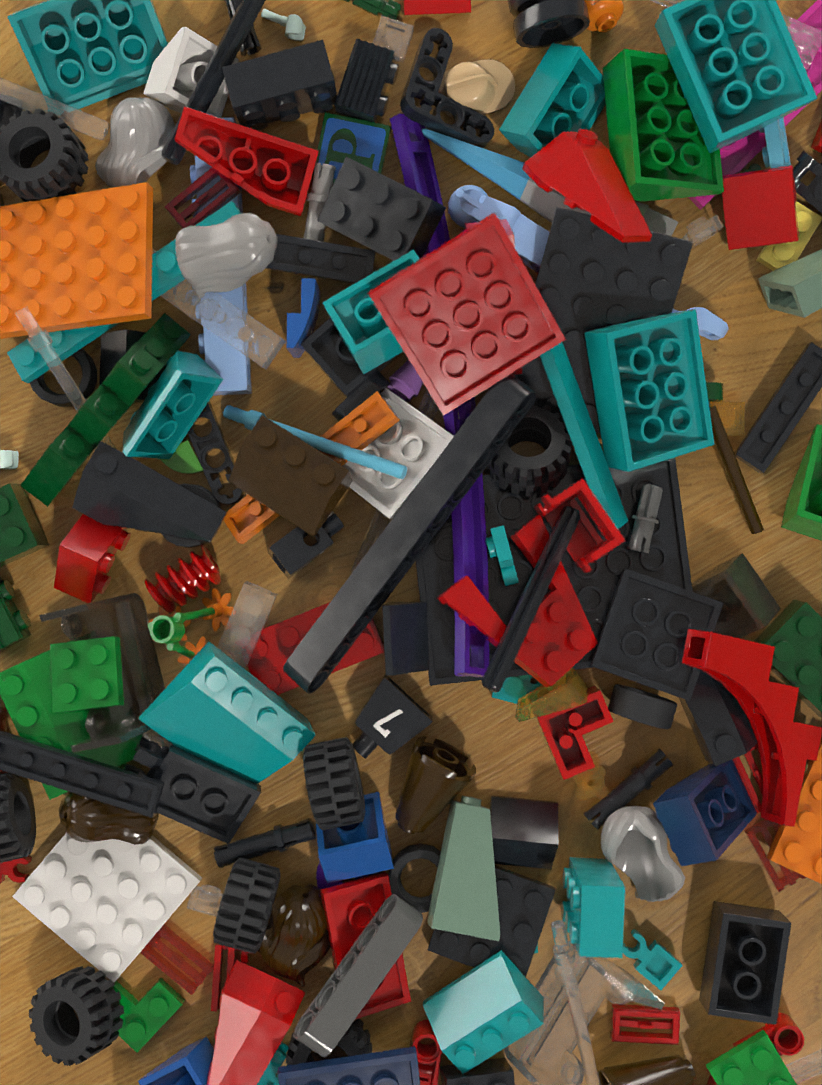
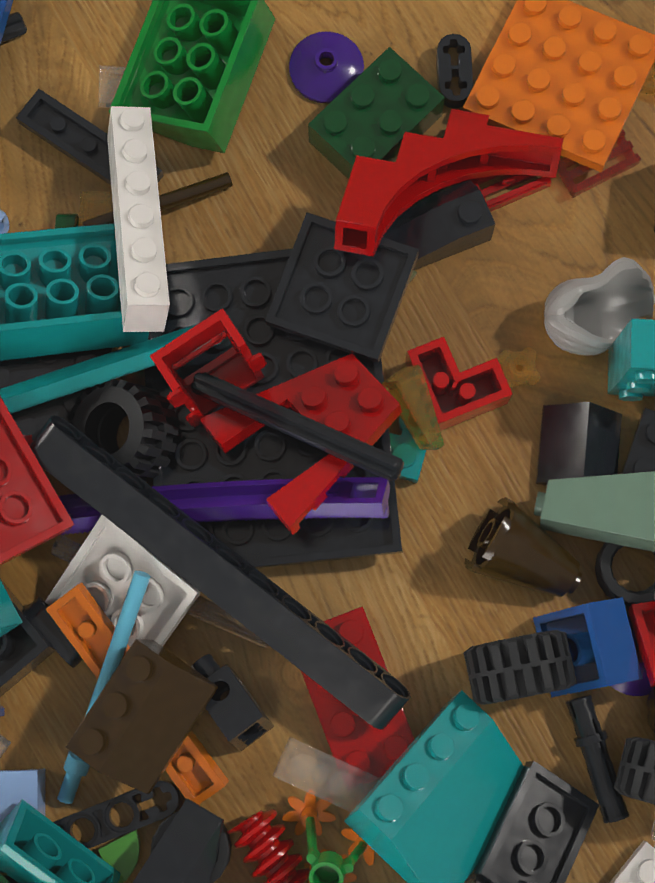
camera: 85 degrees left, 10 degrees down
(389, 719) = (444, 603): black torso -> none
(405, 382) = (34, 574): medium lavender cone -> none
(405, 637) = (343, 577): black slope -> none
(499, 547) = (238, 464): teal plate -> none
(629, 788) = (524, 322): black pin -> none
(642, 706) = (427, 305): black tyre -> none
(645, 518) = (208, 298): dark grey axle -> none
(705, 813) = (550, 237): dark blue slope -> none
(714, 456) = (137, 220): none -> white brick
(744, 597) = (309, 188): clear smoke slope -> none

